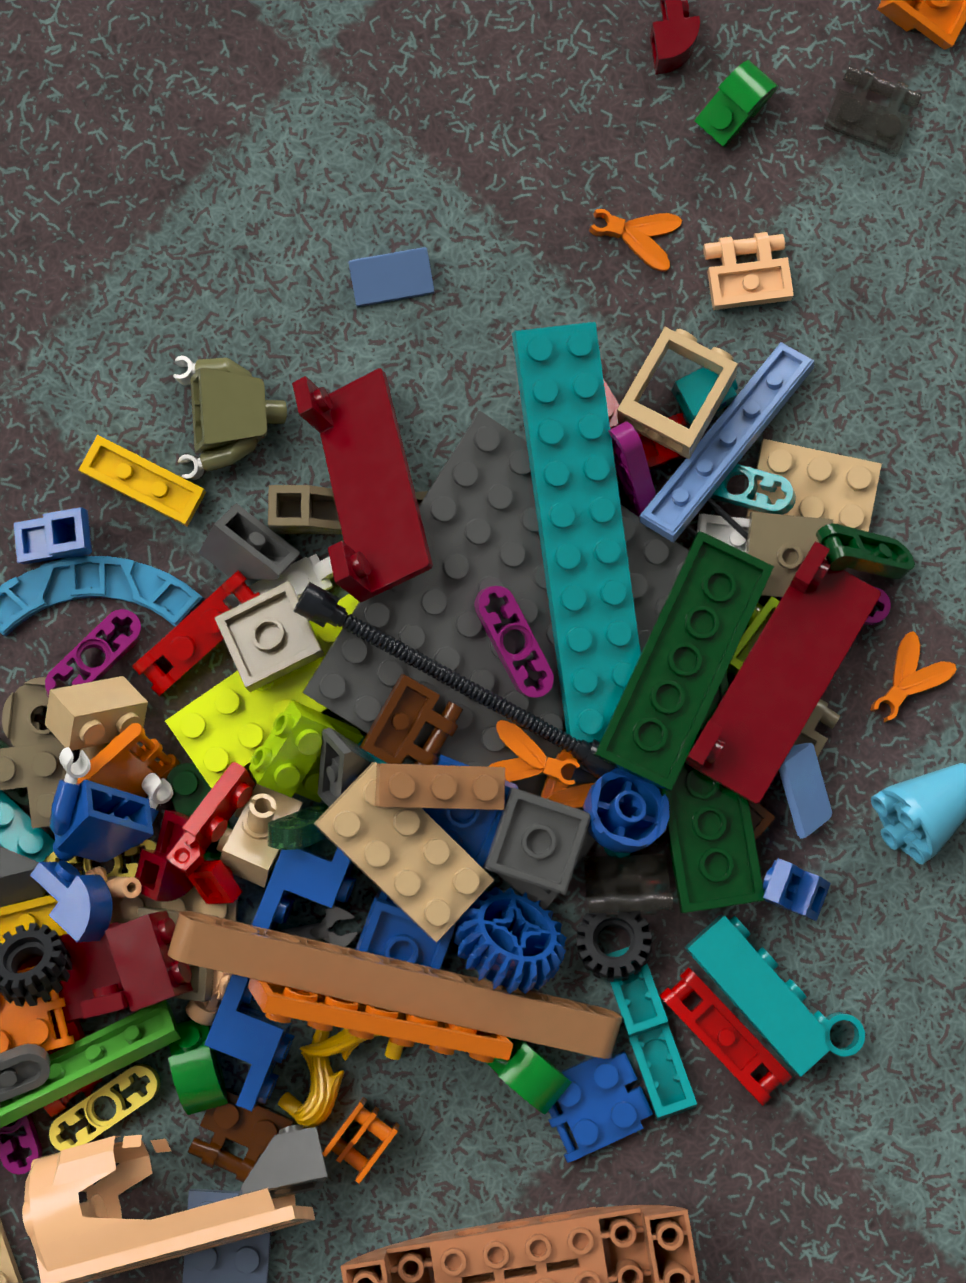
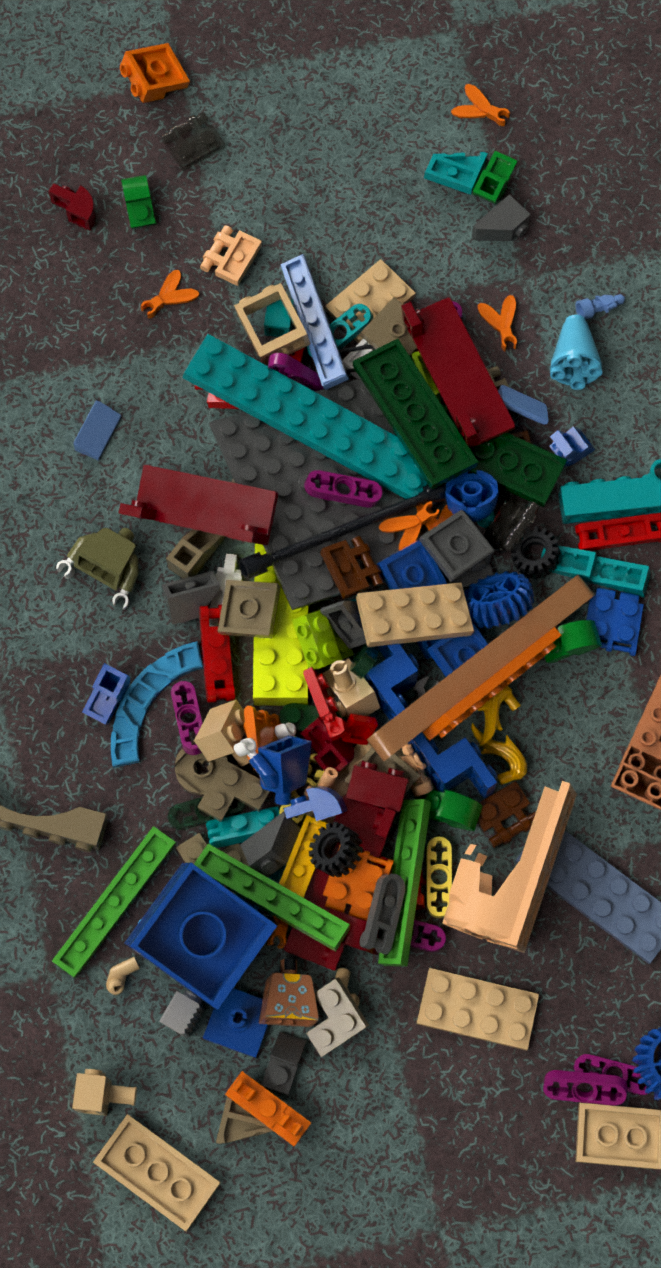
camera: 55 degrees left, 10 degrees down
(142, 480) = (109, 630): yellow plate -> none
(289, 1164) = (532, 783): slope -> none
(346, 1150) = (542, 737): orange piece -> none
(440, 786) = (394, 569): medium nougat plate -> none
(864, 551) = (422, 293): dark green plate -> none

